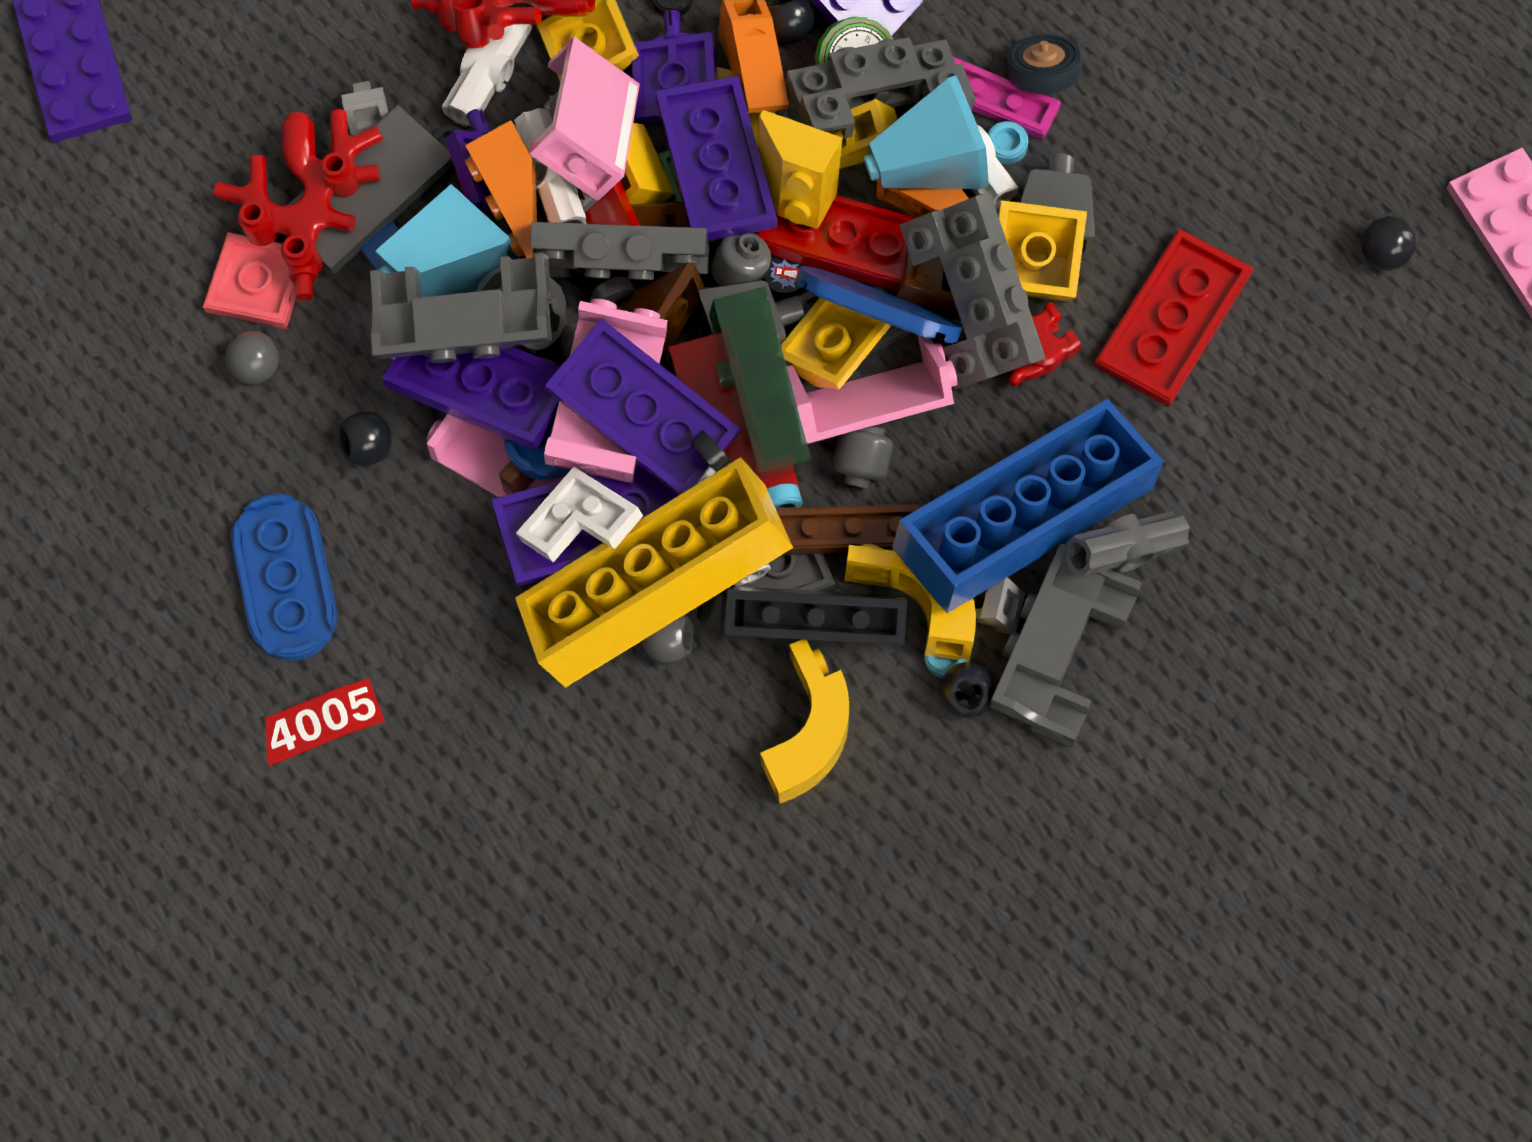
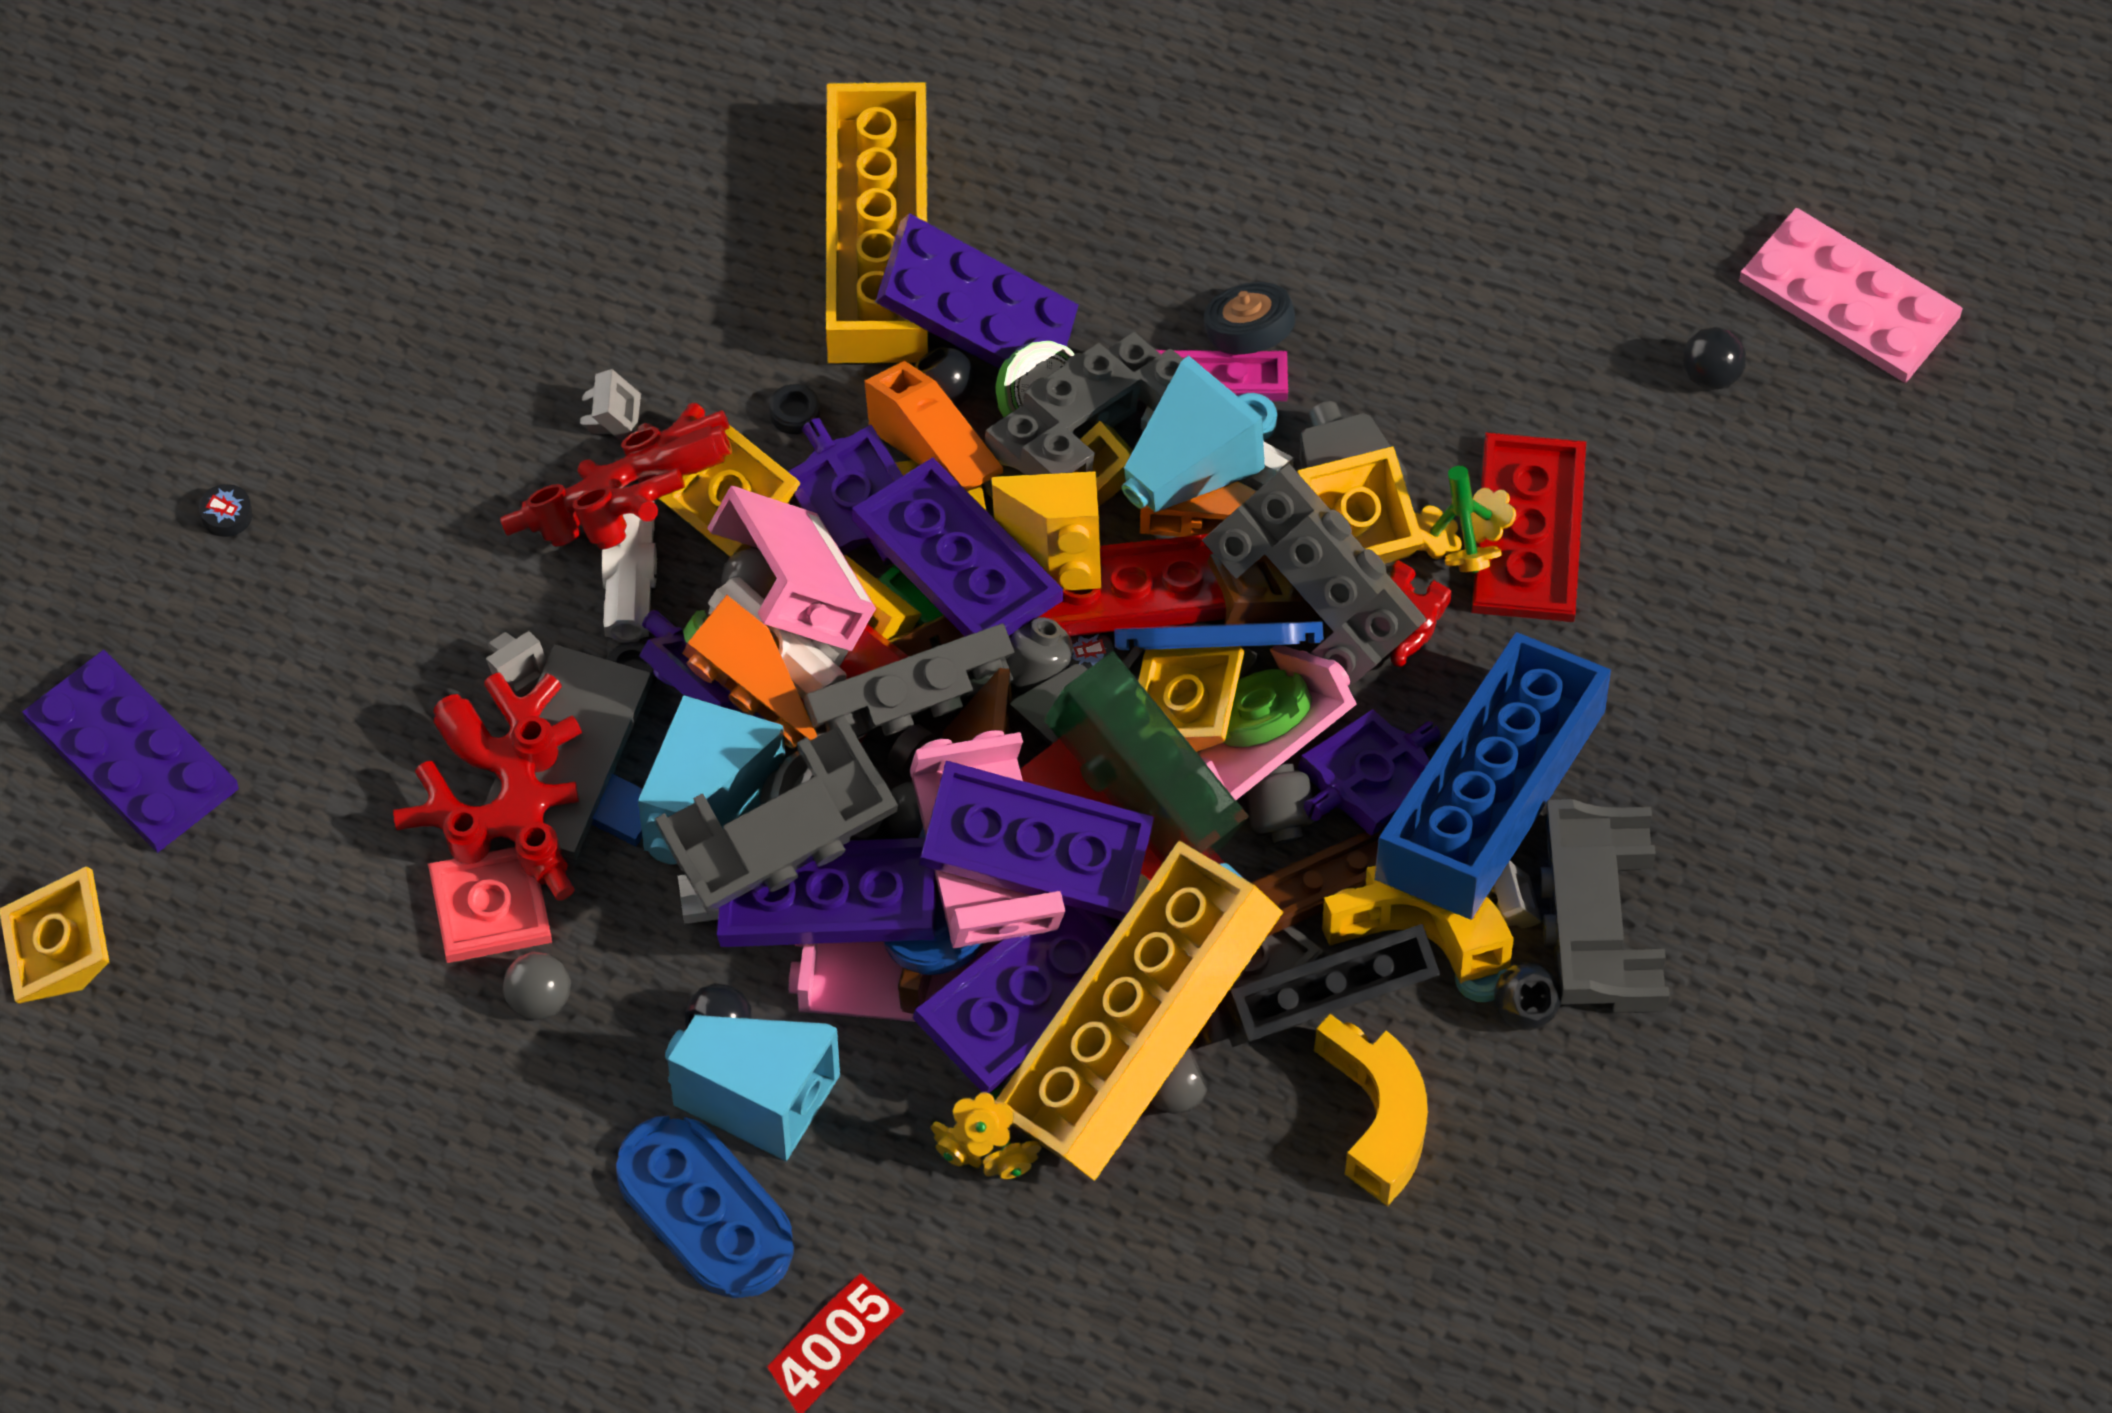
camera: 30 degrees left, 10 degrees down
(361, 497) = (754, 1076): none -> medium azure slope
(494, 611) = (978, 1129): none -> yellow plant
(578, 505) = (1020, 970): white plate -> none
(709, 451) = (1140, 850): black tile -> none
(889, 375) = (1266, 707): none -> bright green tile
(940, 455) = (1366, 770): none -> dark purple plate
(1103, 291) = (1480, 519): none -> yellow plant
(1127, 543) = (1616, 771): dark grey piece -> none

